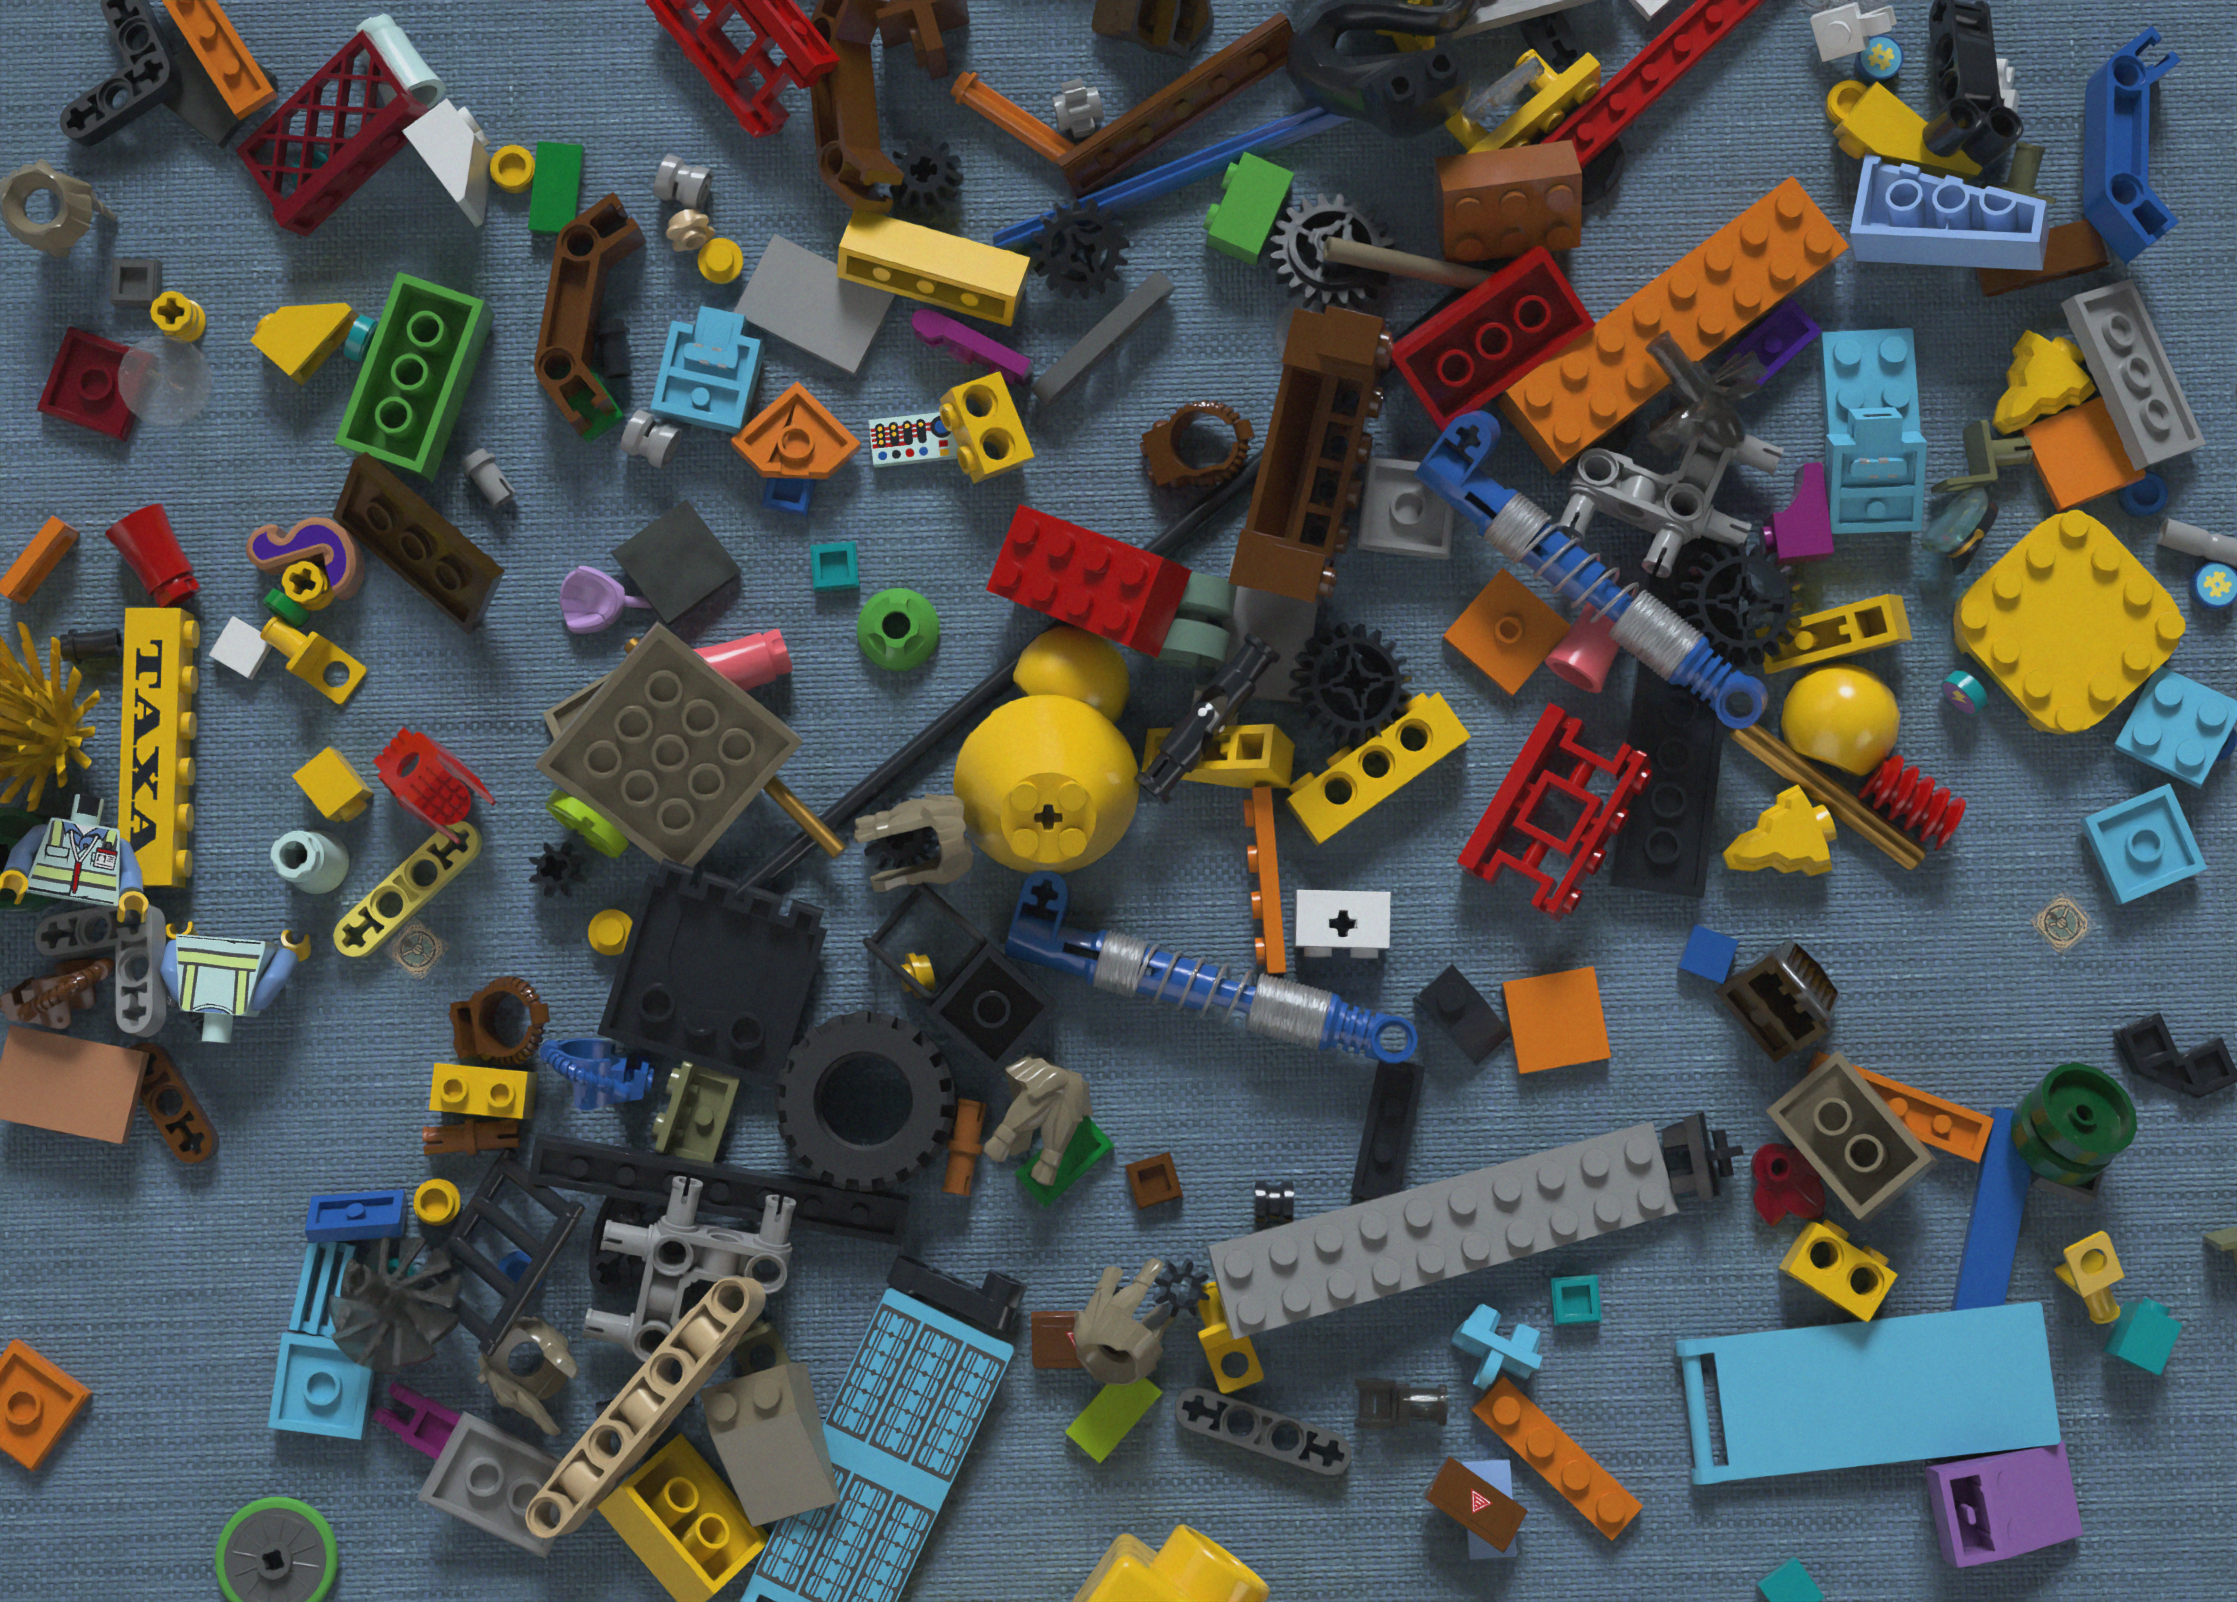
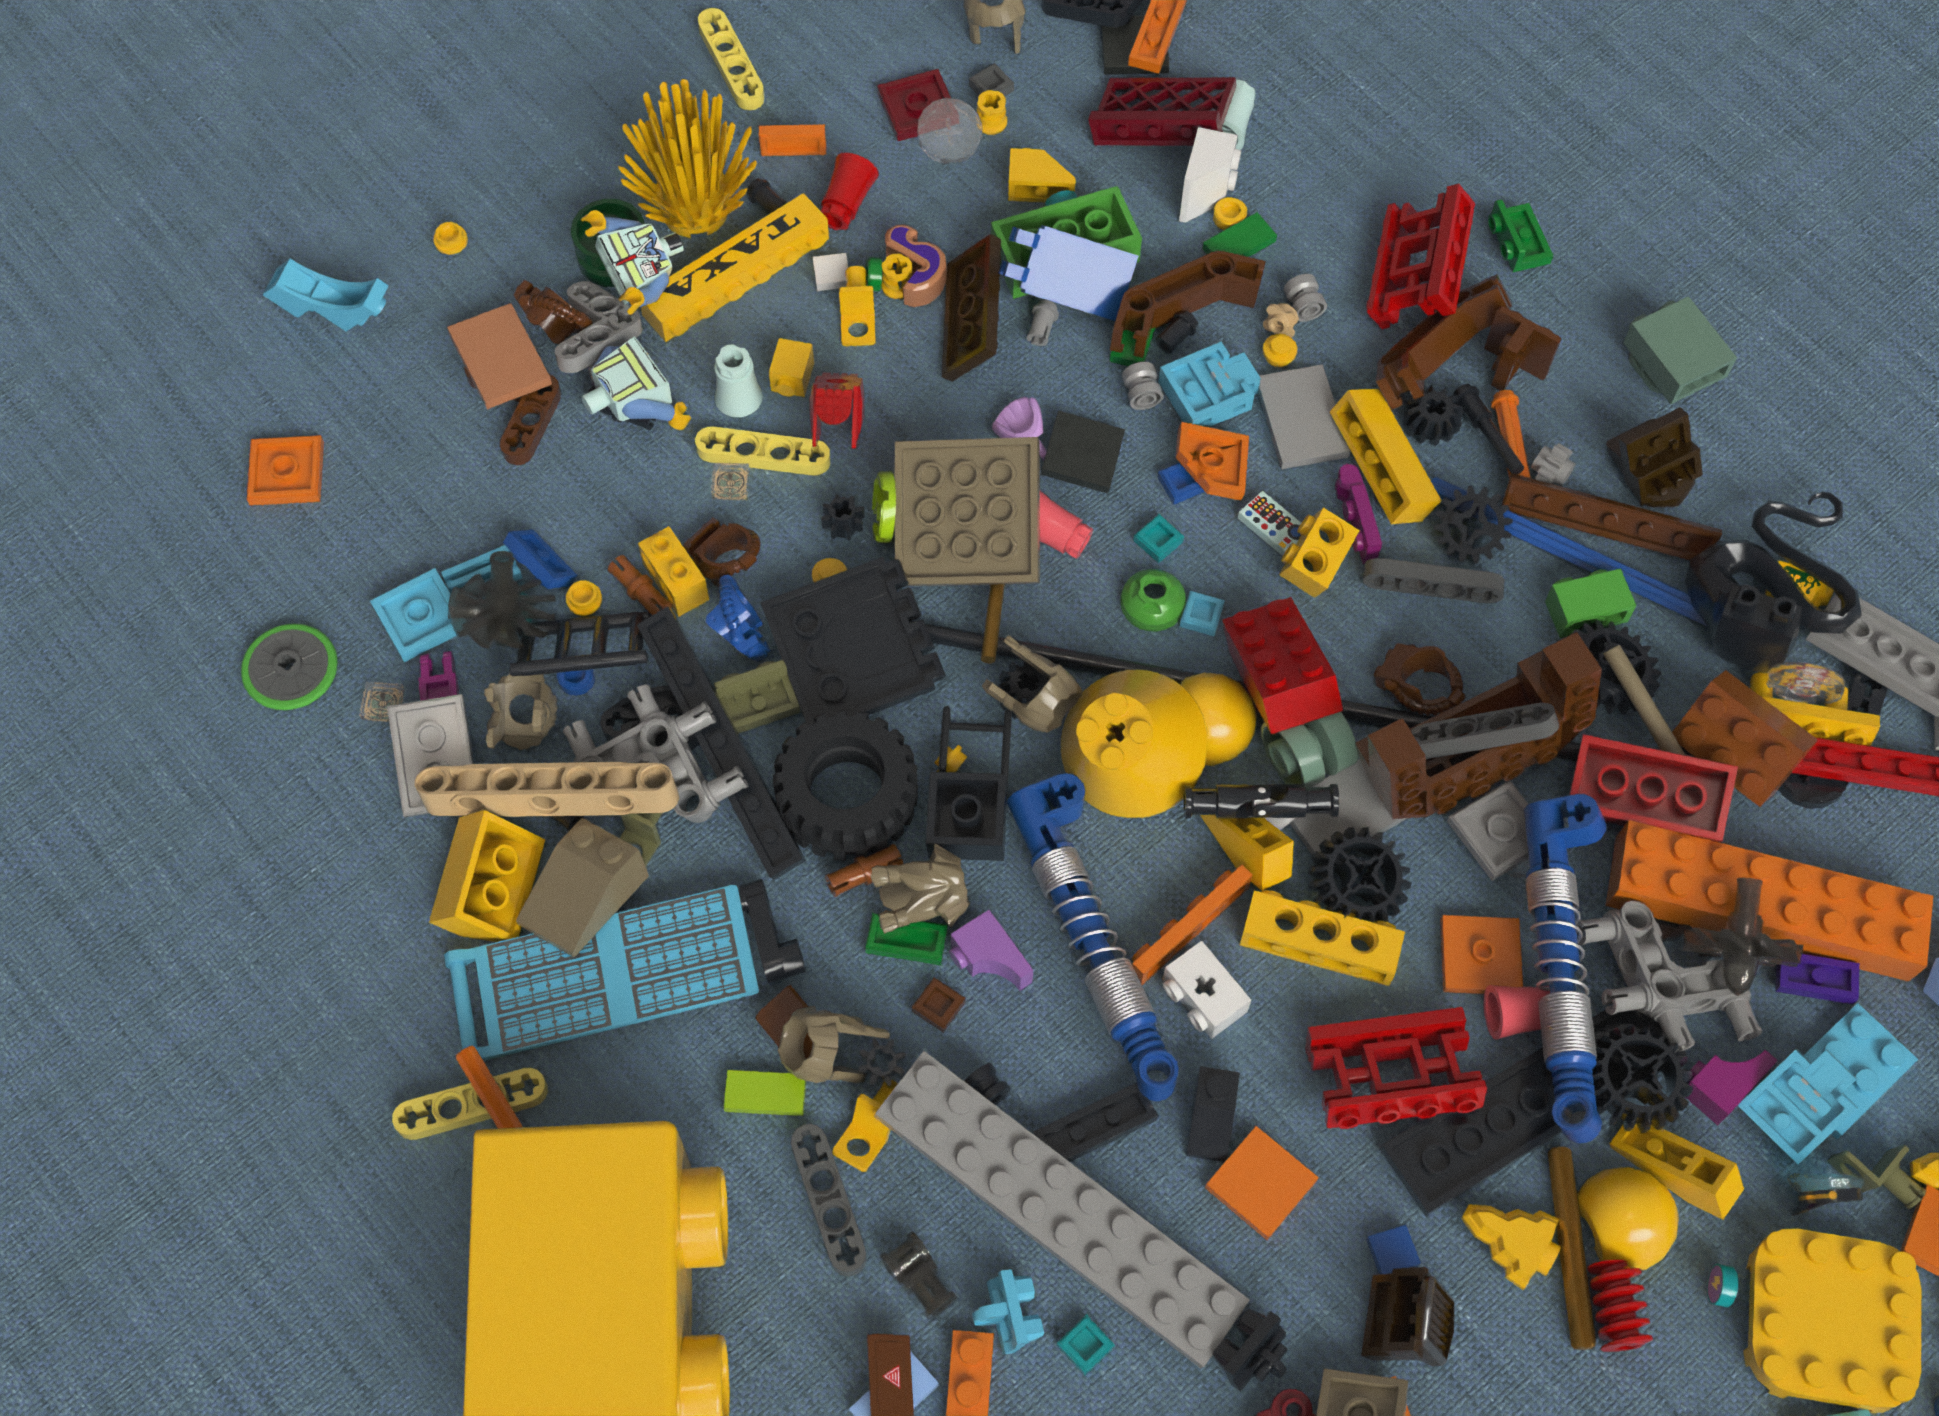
camera: 50 degrees right, 20 degrees down
(392, 1490) = (377, 698): none -> clear tile
(464, 408) = (1072, 271): none -> tile
(952, 593) = (1202, 613): none -> medium azure tile
(964, 130) = (1481, 418): none -> black pin
(1137, 1092) = (987, 948): none -> medium lavender arch
(1315, 450) = (1522, 723): none -> dark grey beam

